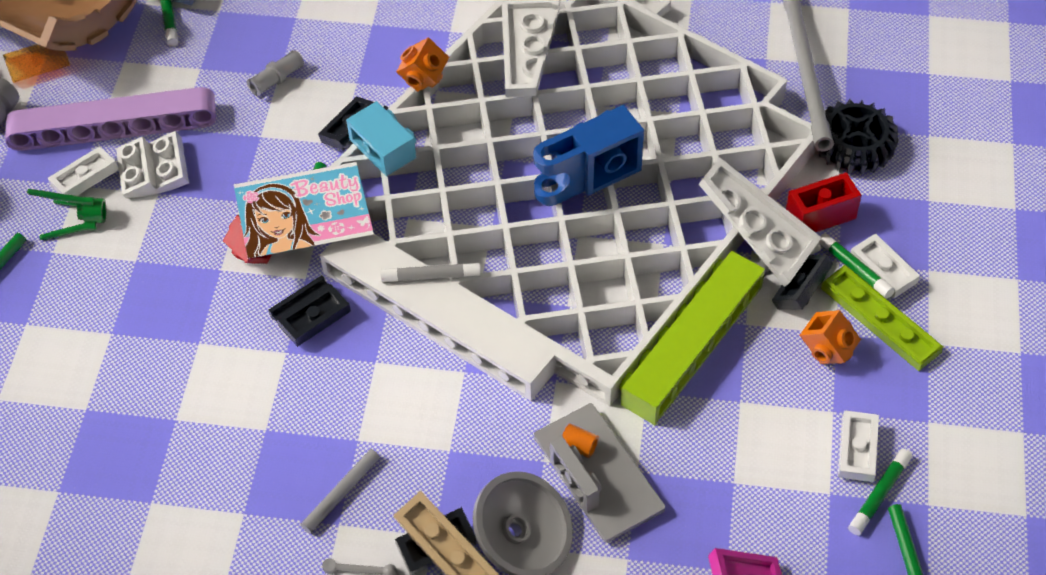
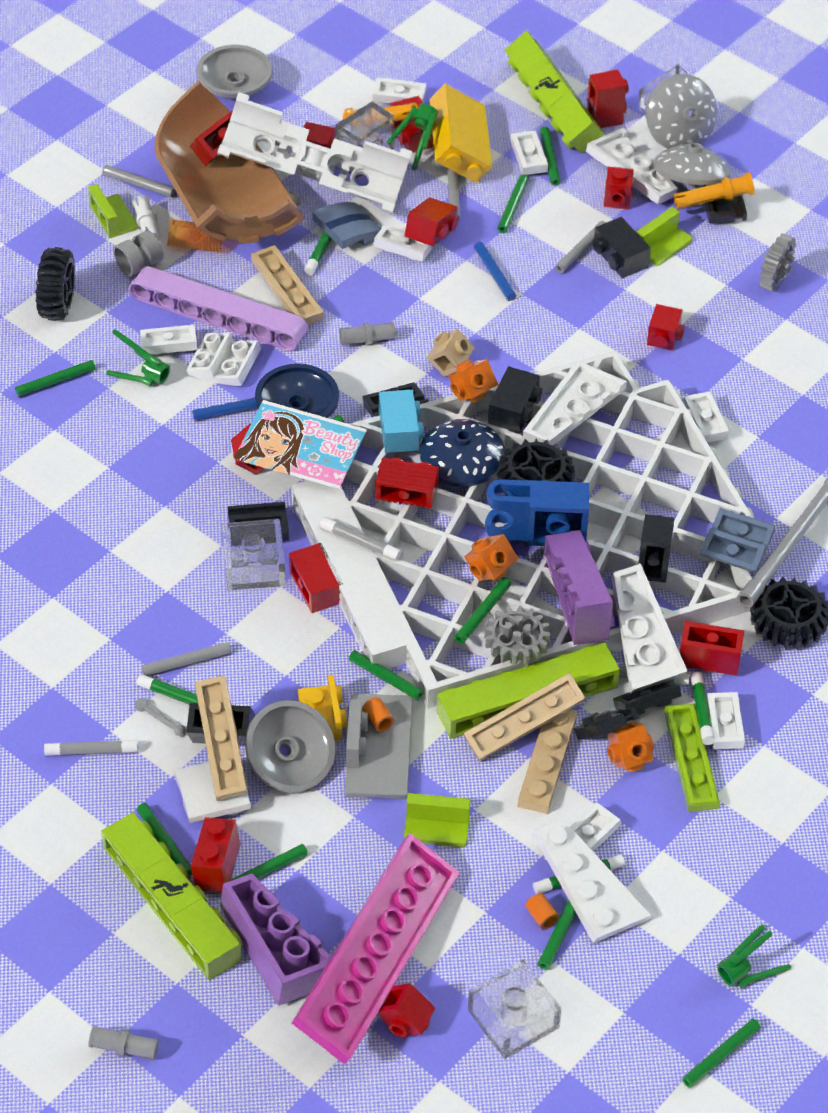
camera: 30 degrees right, 5 degrees down
(162, 64) = (286, 284): none -> tan plate
(196, 208) = (223, 409): none -> blue bar
(255, 156) = (300, 388): none -> dark blue dish
(333, 345) = (253, 554): none -> clear brick
(354, 533) = (166, 689): none -> green bar
(370, 51) = (450, 351): none -> tan brick
(408, 336) = (314, 578): none -> red brick
(435, 193) = (406, 482): none -> red brick
(460, 139) = (463, 452): none -> dark blue dish
(473, 65) = (514, 399): none -> black brick
(516, 454) = (326, 701): none -> yellow bracket
(546, 113) = (536, 462): none -> black gear
(551, 395) = (386, 675): none -> green piece
(574, 224) = (491, 557): none -> orange brick
(601, 281) = (483, 610): none -> green piece
(640, 294) = (500, 638): none -> light grey gear
(676, 209) = (579, 587): none -> medium lavender wedge
(713, 517) = (437, 819): none -> lime panel
(717, 133) = (656, 546): none -> black brick
(717, 364) = (524, 717): none -> tan plate
(760, 393) = (547, 763): none -> tan plate
(769, 93) = (738, 540): none -> sand blue slope
(795, 328) = (601, 724): none -> black plate
(881, 550) = (542, 911): none -> orange hinge
(908, 498) = (591, 887): none -> white wing

